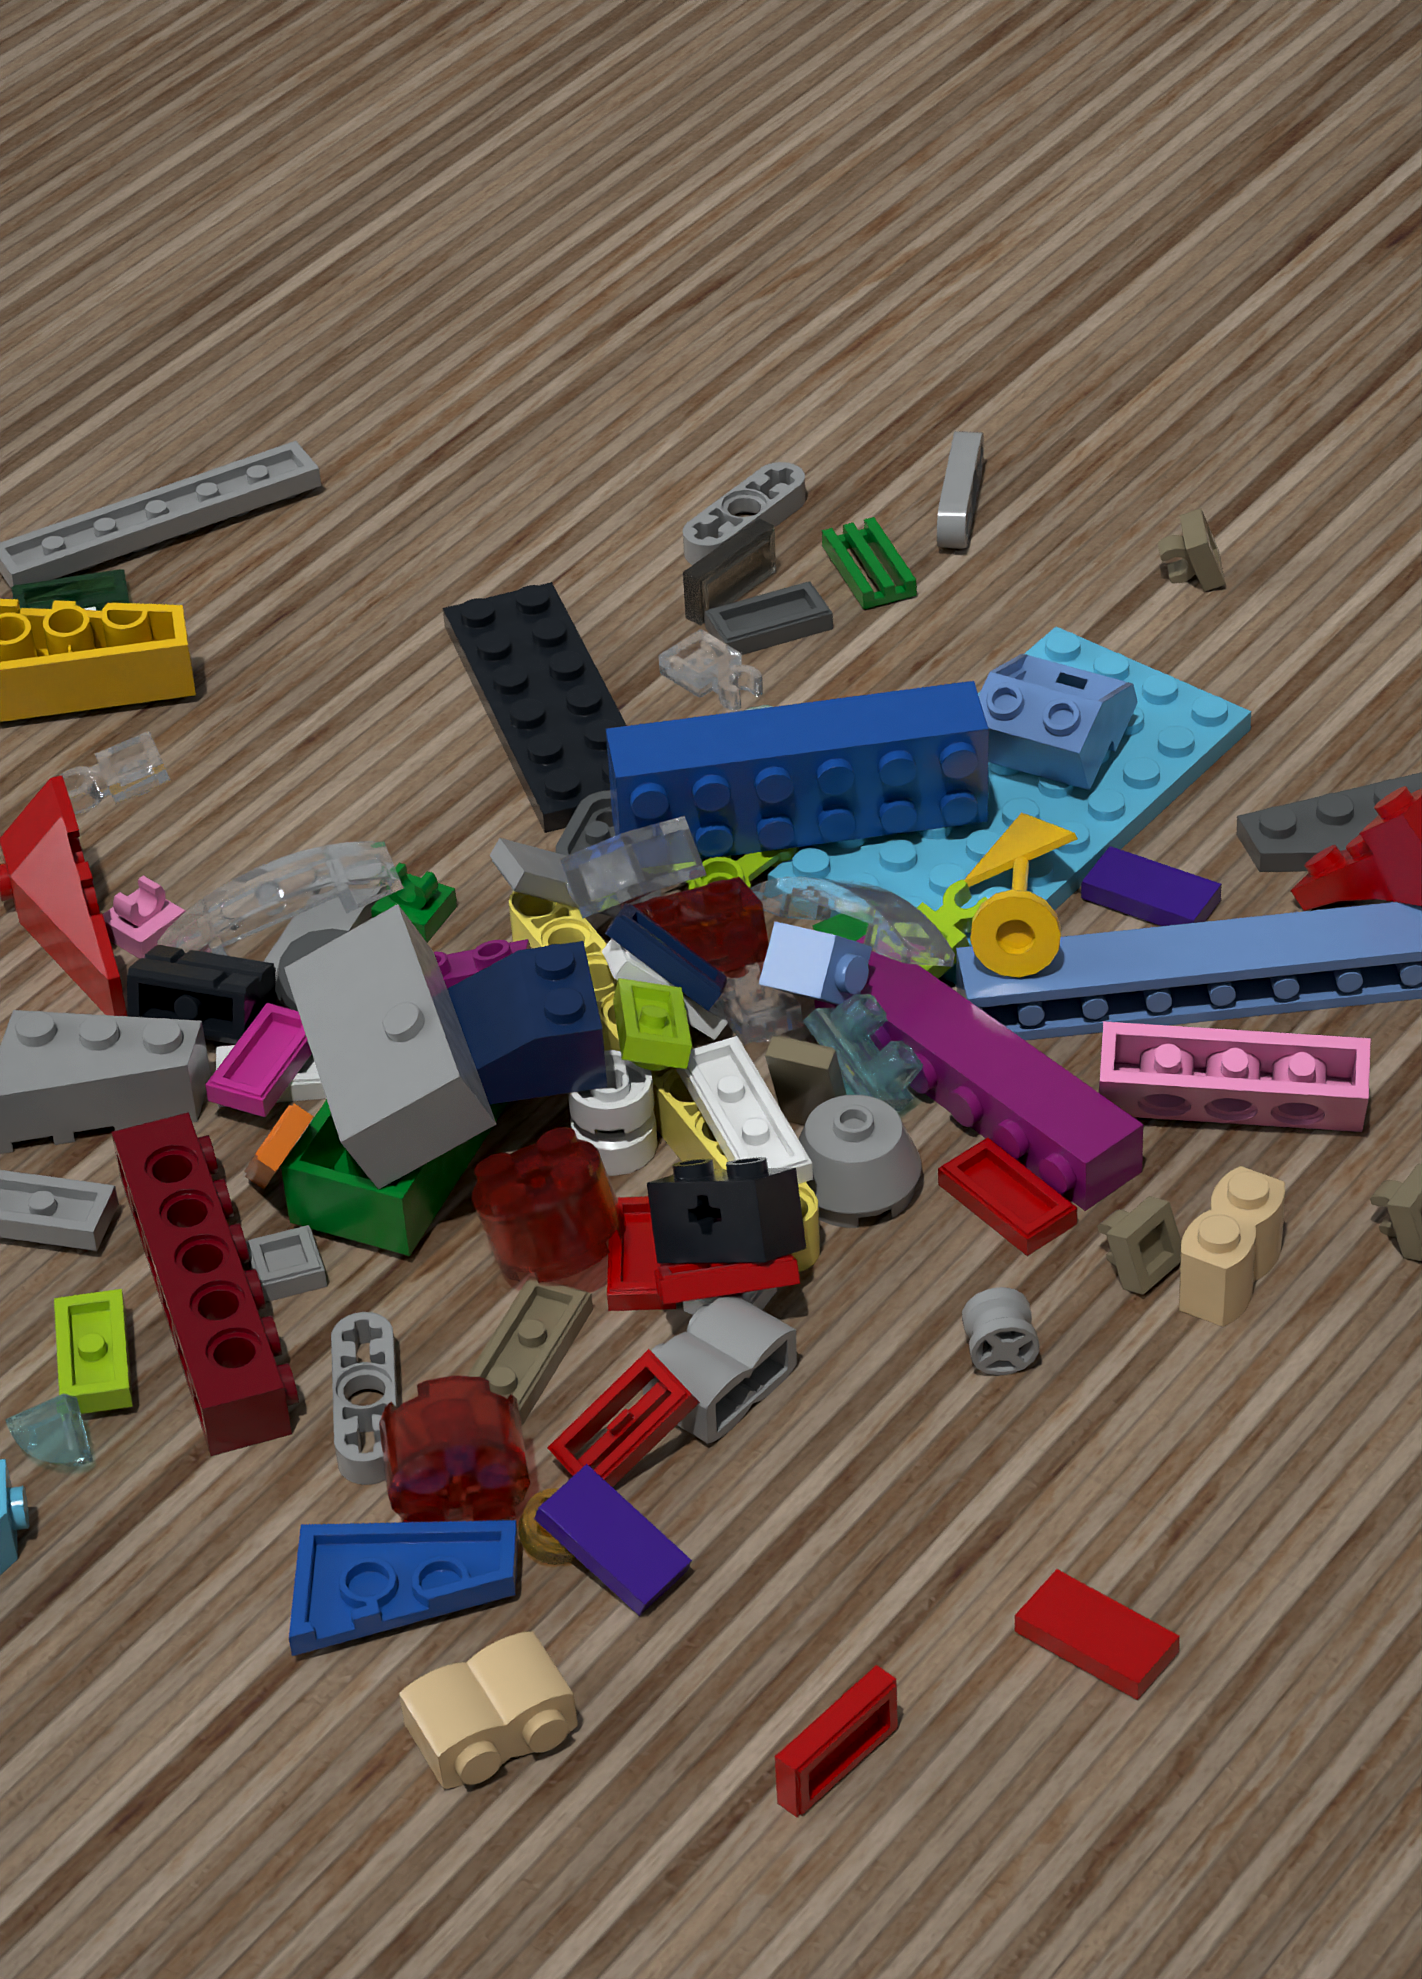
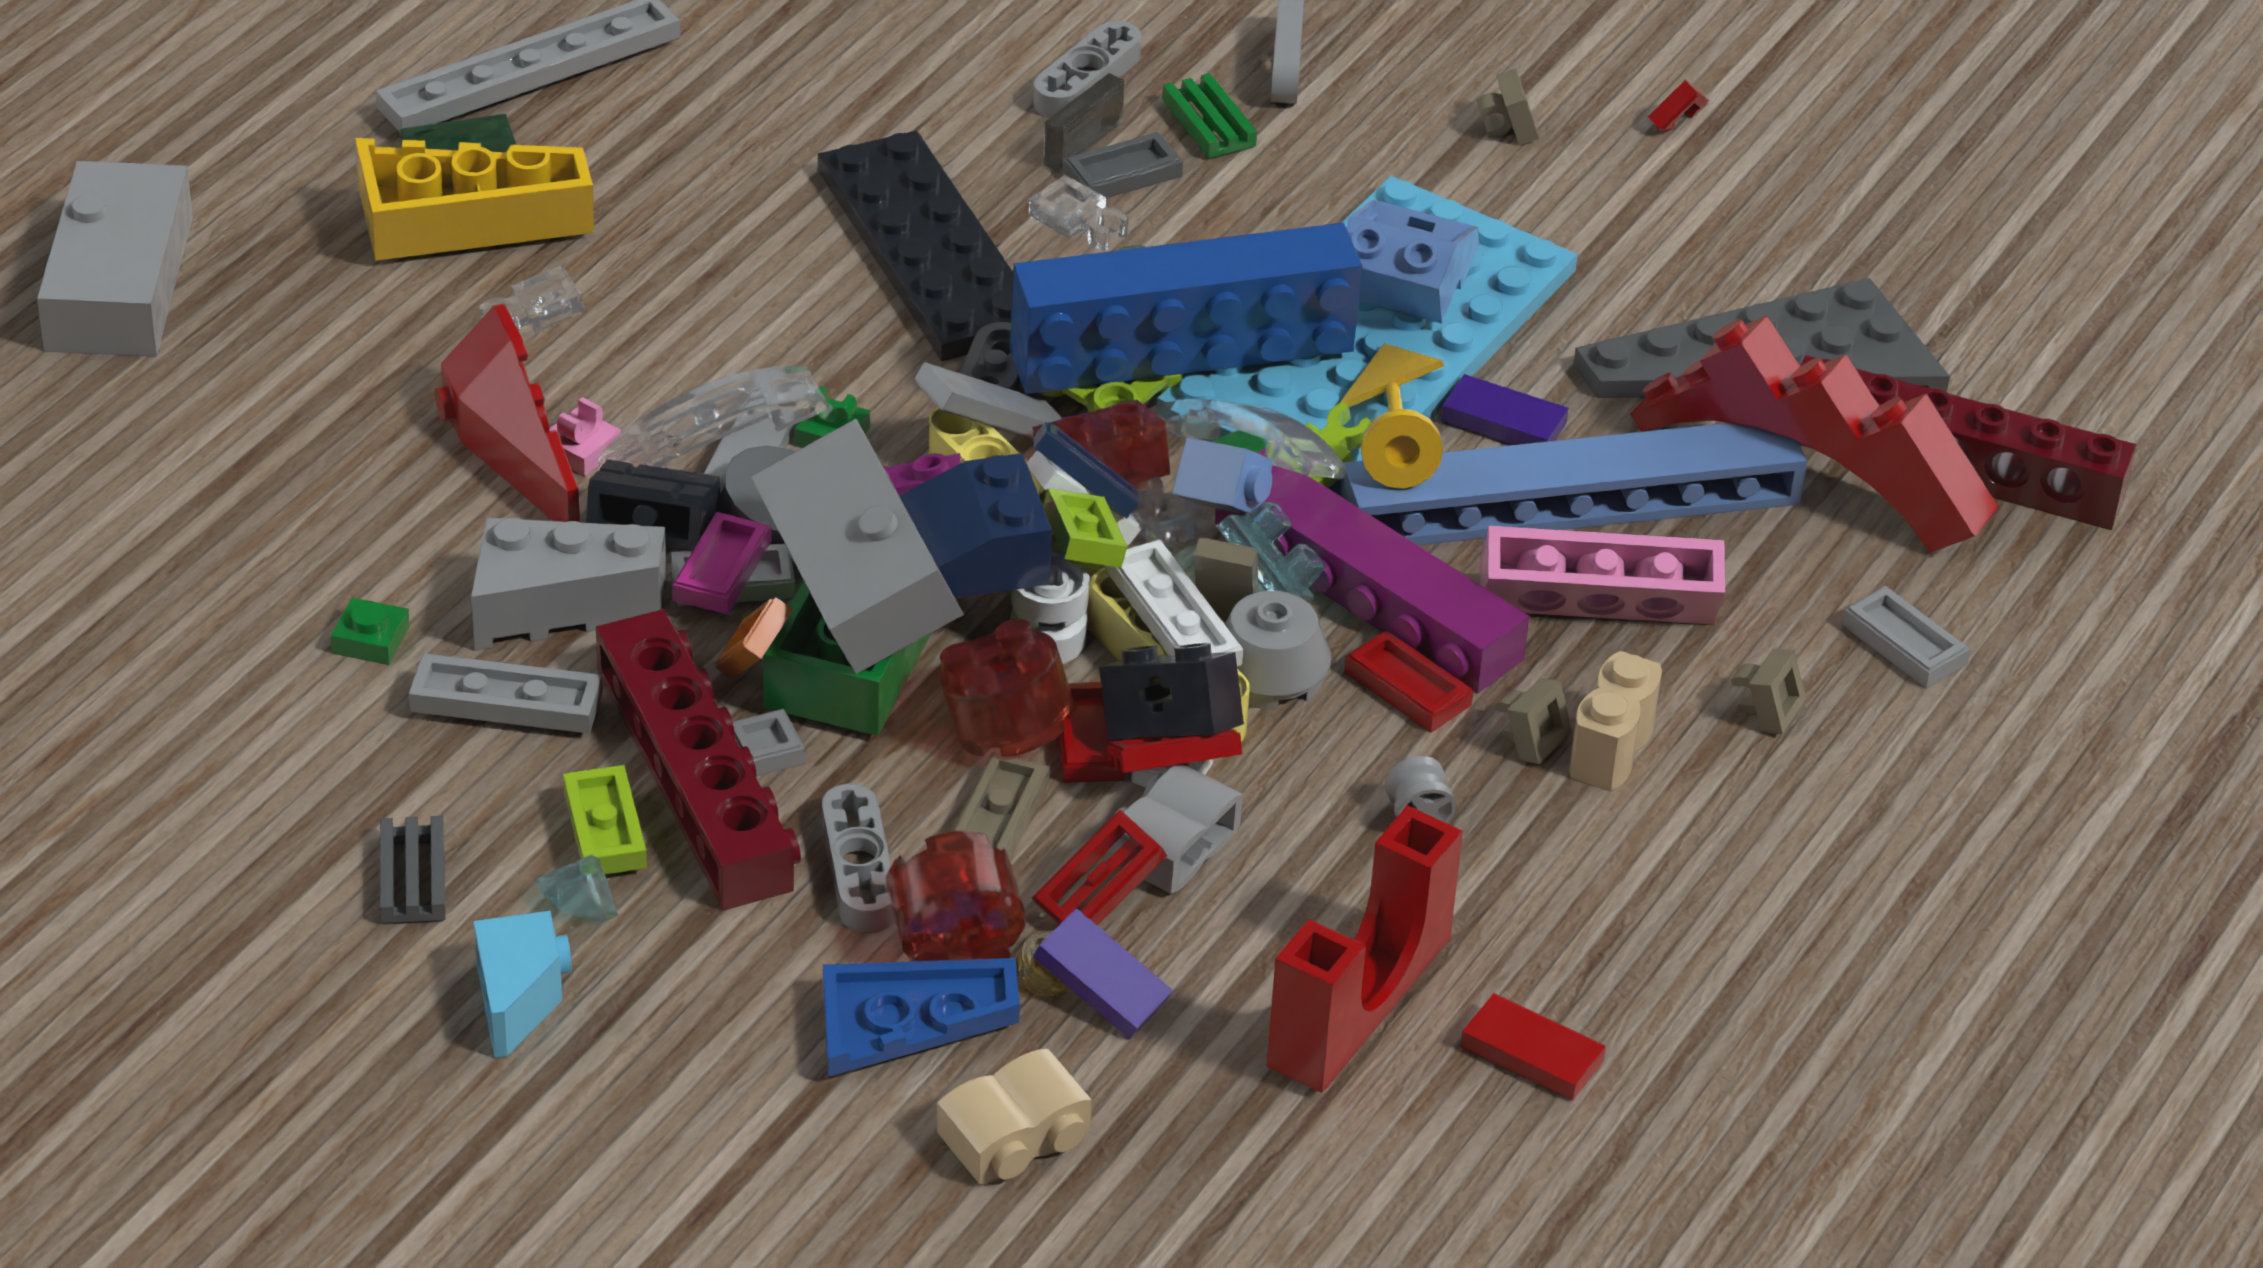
camera: 10 degrees left, 0 degrees up
(632, 867) = (1047, 389): clear brick -> none
(836, 1741) = (1322, 1136): red tile -> none
(863, 1578) = (1340, 989): none -> red arch
(1384, 540) = (1682, 100): none -> red tile

